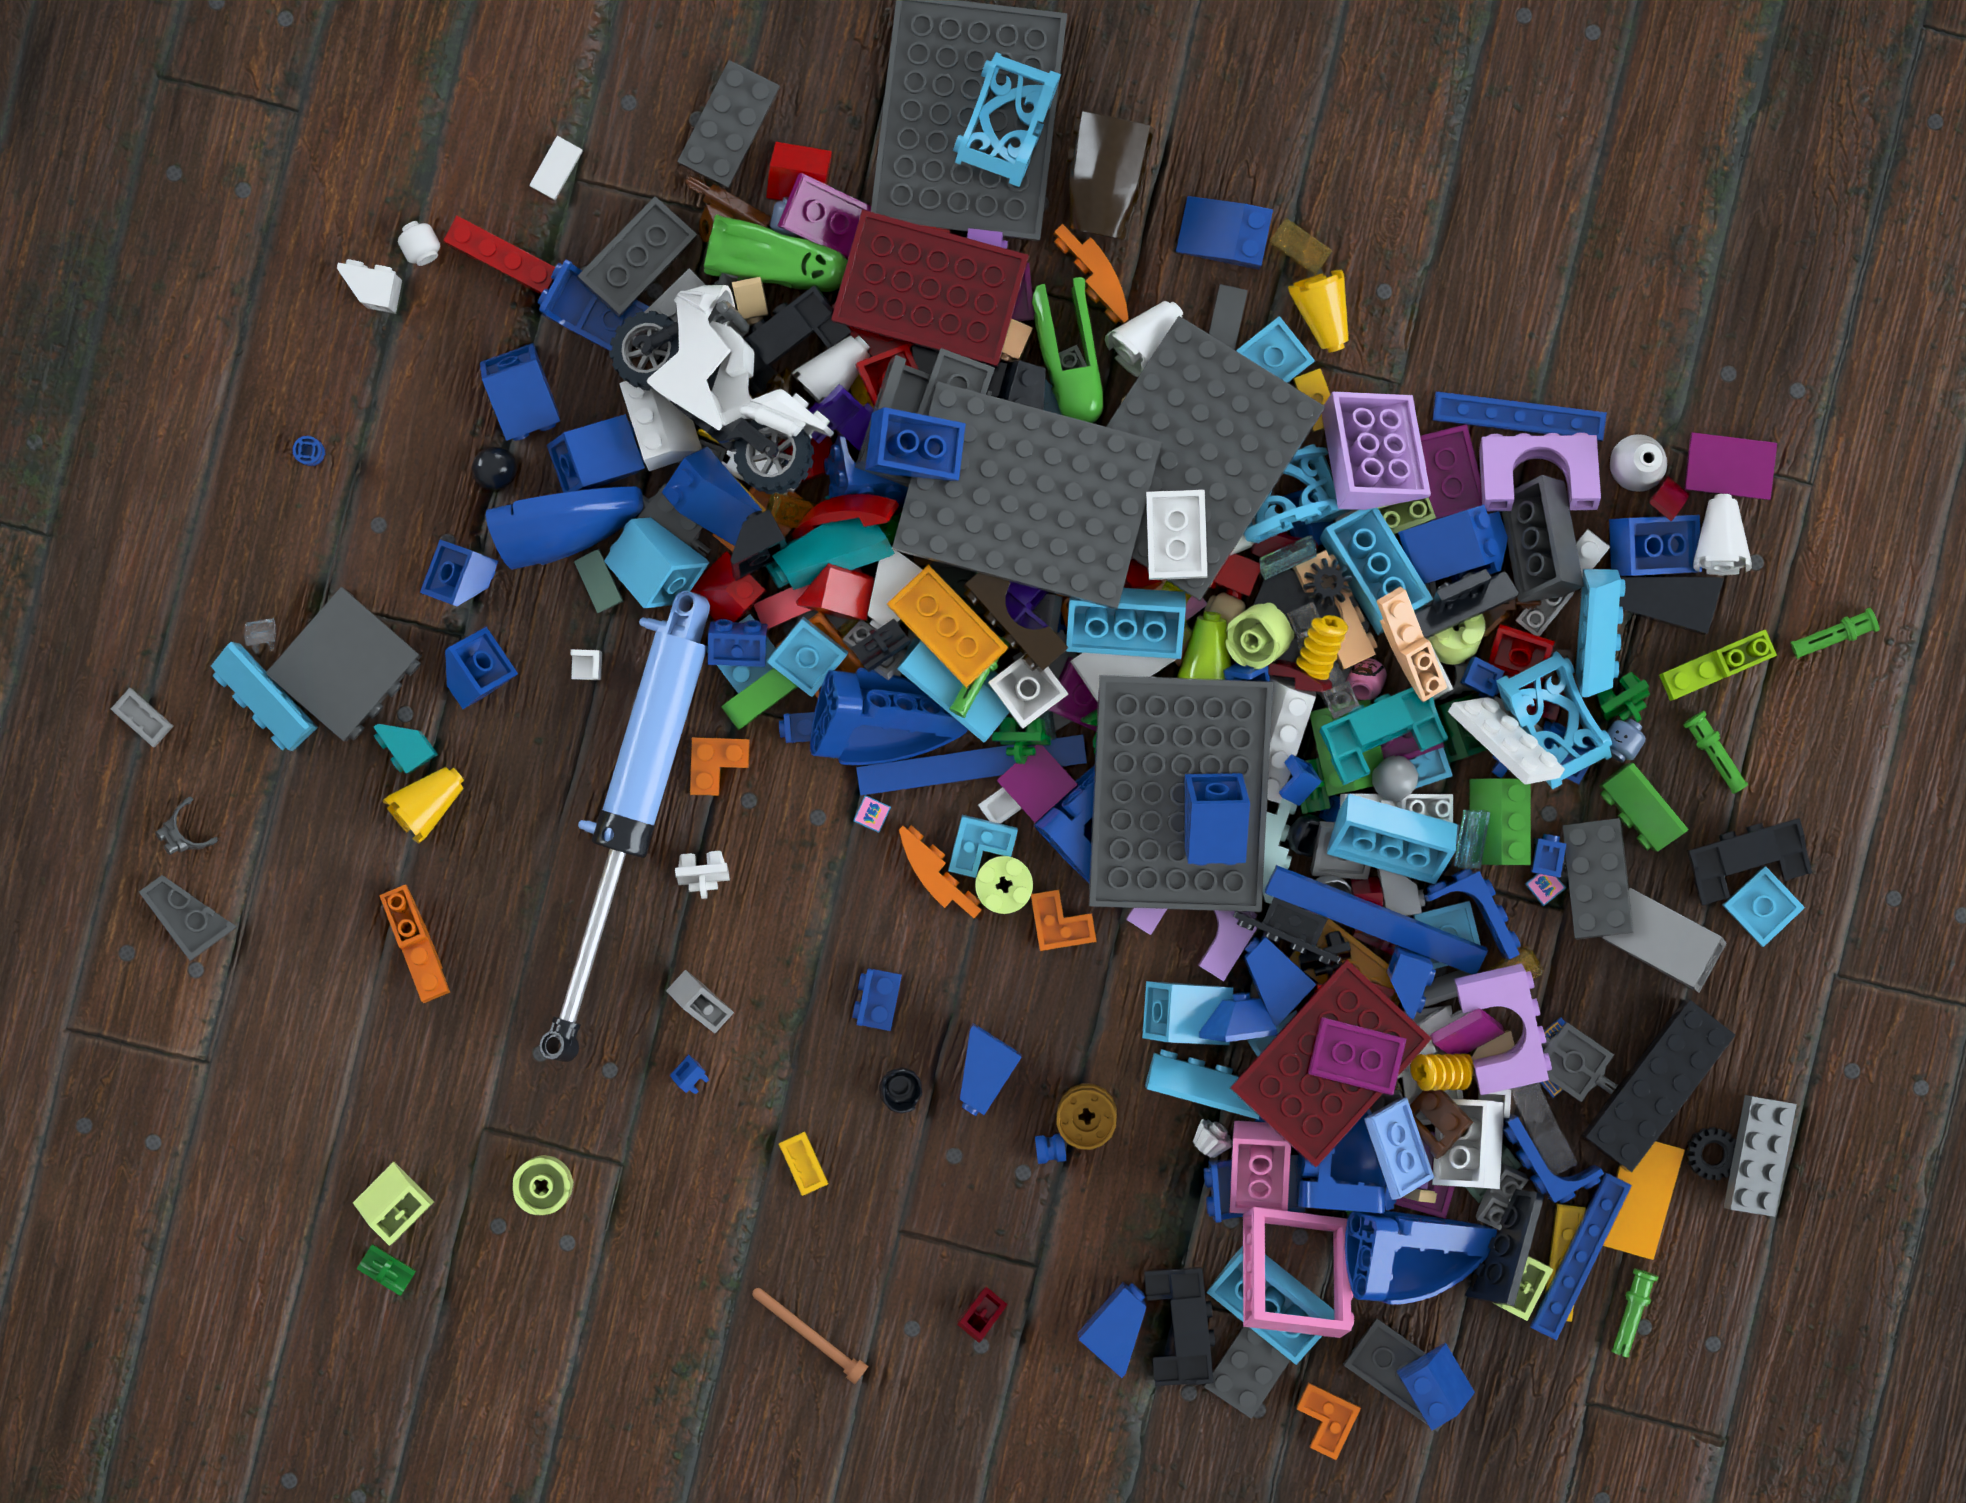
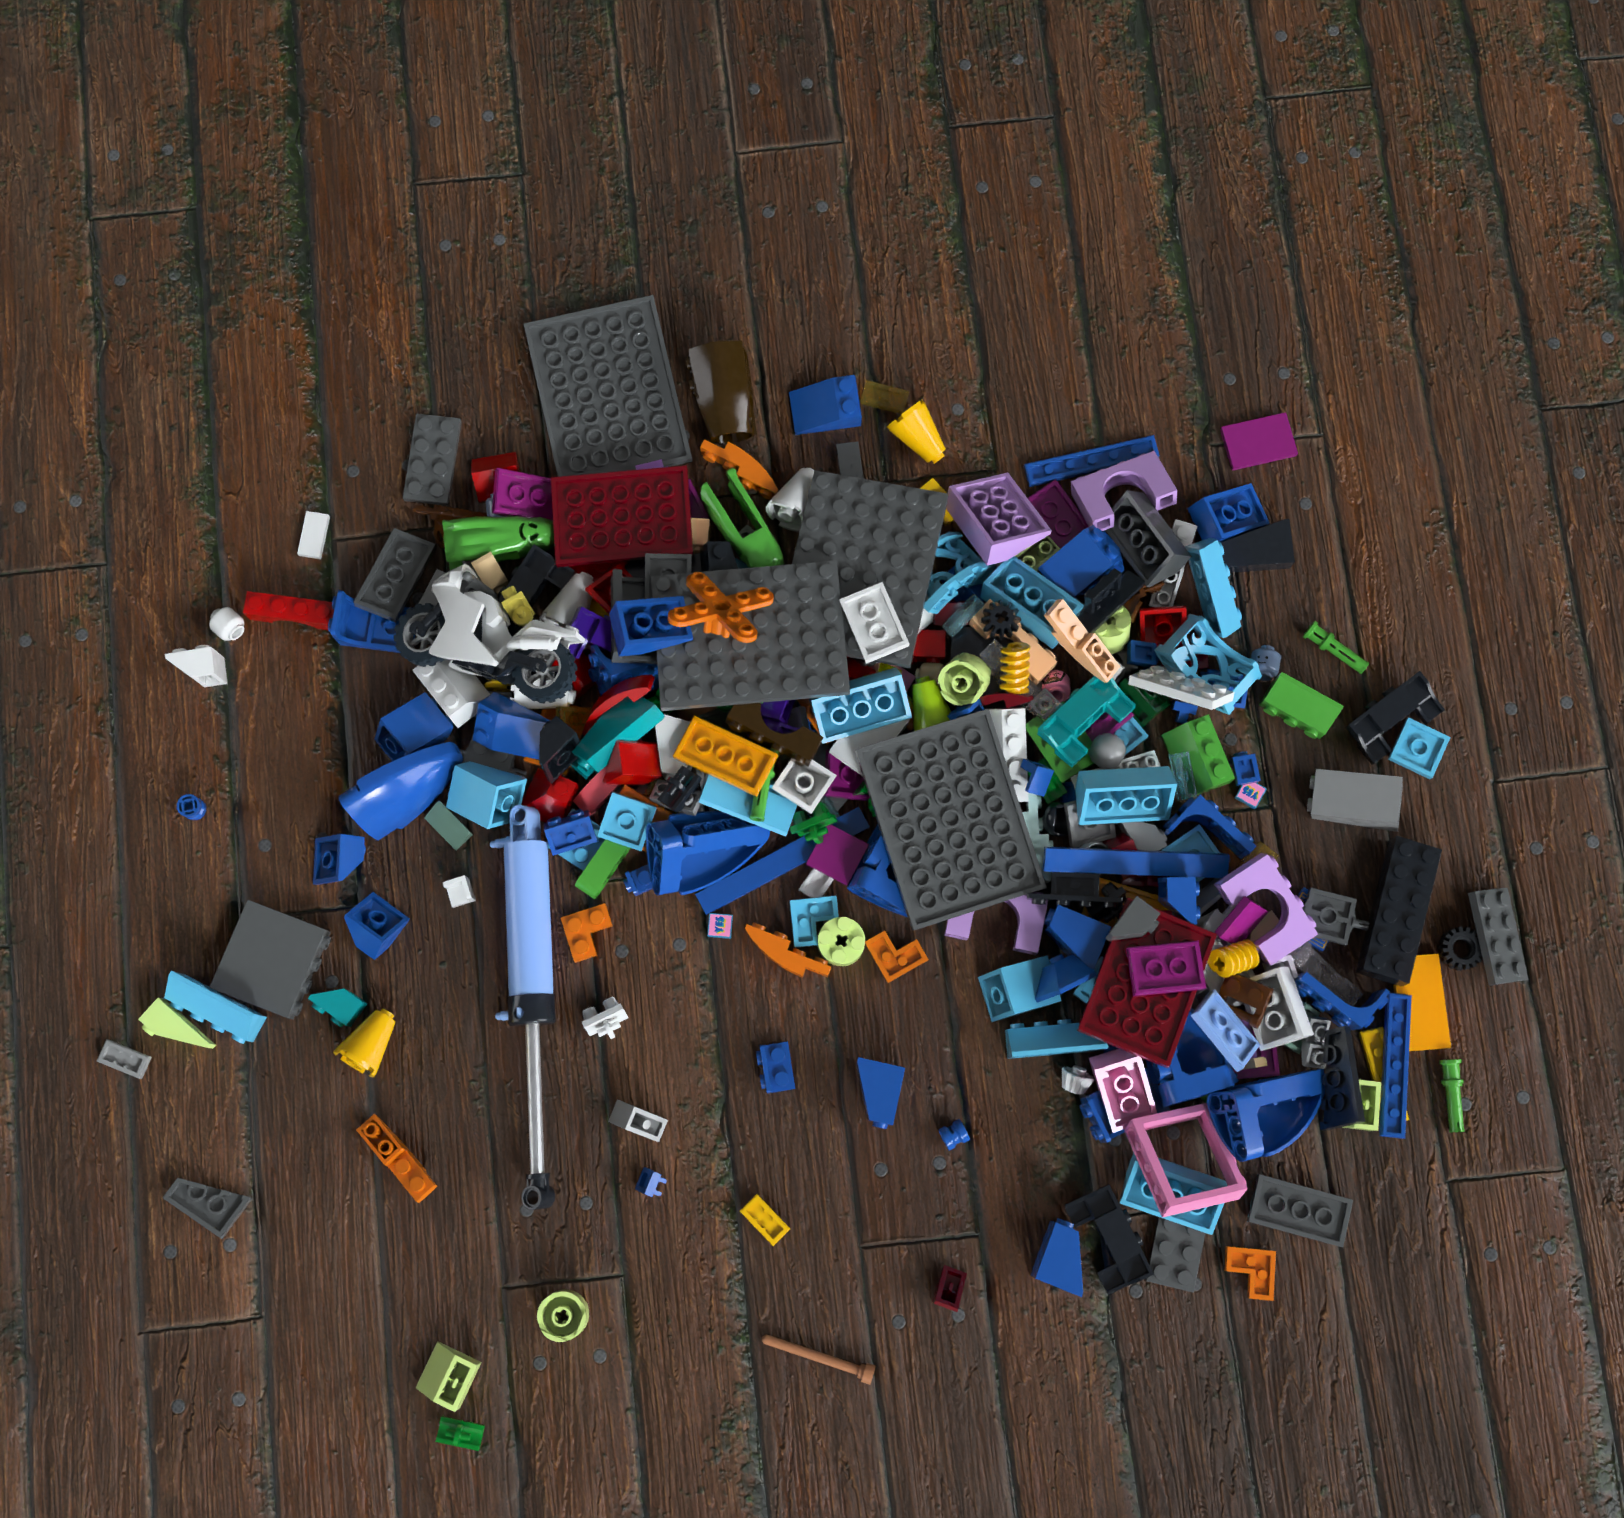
camera: 20 degrees left, 10 degrees down
(172, 837) = (180, 1146): dark grey helmet -> none
(207, 697) = (170, 1023): none -> yellowish green slope
(260, 632) = (197, 958): clear tile -> none
(494, 468) = (339, 770): black hair -> none
(519, 392) = (340, 706): blue slope -> none
(768, 359) = (517, 606): none -> light yellow hips
(900, 1090) = (820, 1131): black hair -> none
(1001, 462) = (719, 612): none -> orange piece
(1040, 96) = (649, 406): medium azure fence -> none
(1084, 1133) = (986, 1101): pearl gold wheel -> none
(1216, 818) = (986, 826): blue slope -> none
(1277, 351) = (898, 471): medium azure plate -> none
(1342, 991) = (1135, 921): none -> dark grey slope
(1436, 1385) = (1329, 1211): blue slope -> none
(1598, 879) = (1289, 772): dark grey plate -> none
(1627, 703) = (1255, 636): green hips -> none
(1629, 467) = (1192, 460): white cone -> none
(1669, 498) = (1225, 476): dark red slope -> none
(1717, 665) = (1310, 583): lime slope -> none
(1722, 540) = (1276, 492): white cone -> none
(1847, 629) = (1393, 525): bright green pin -> none

